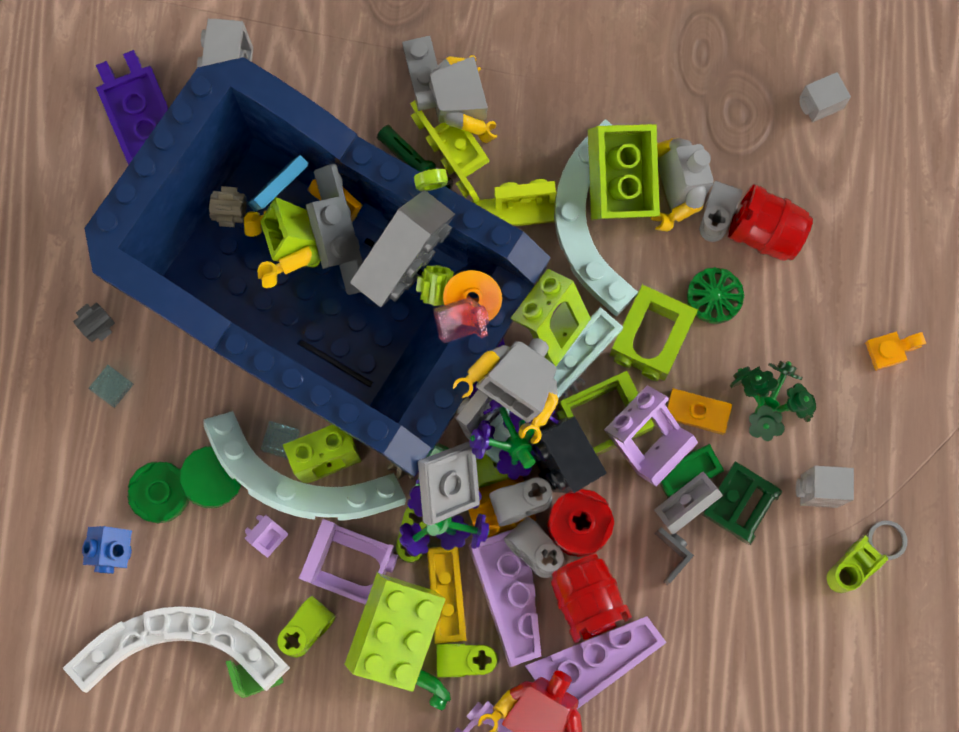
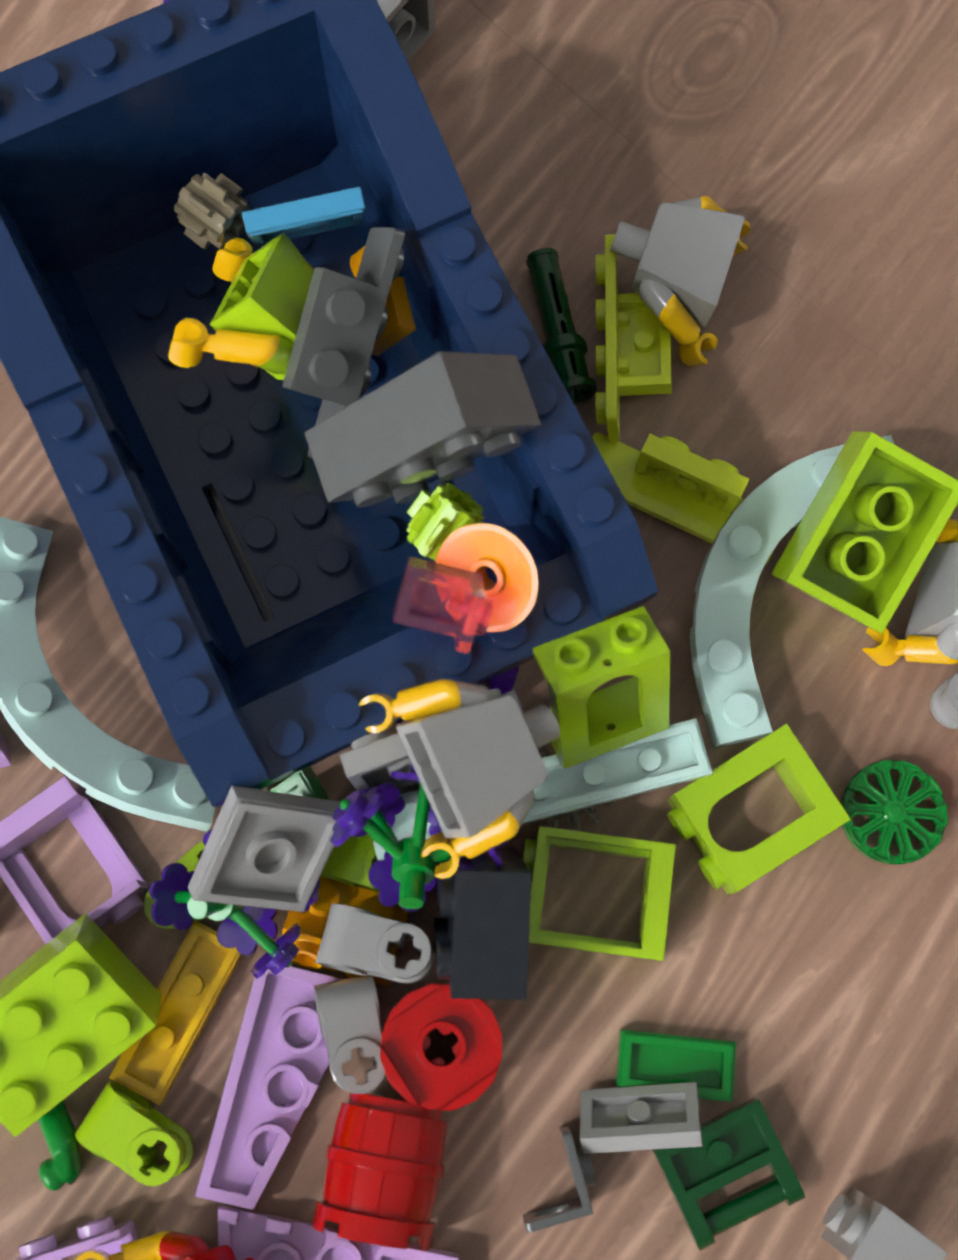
camera: 30 degrees right, 0 degrees up
(276, 436) = (90, 617): clear light blue tile -> none
(314, 451) = (102, 673): lime panel -> none
(420, 61) = (667, 178): light grey plate -> none
(431, 179) = (536, 344): lime tile -> none
(666, 451) = (656, 1011): lavender panel -> none
(699, 411) = (750, 978): light orange plate -> none
(767, 416) = (878, 1016): dark green plant -> none

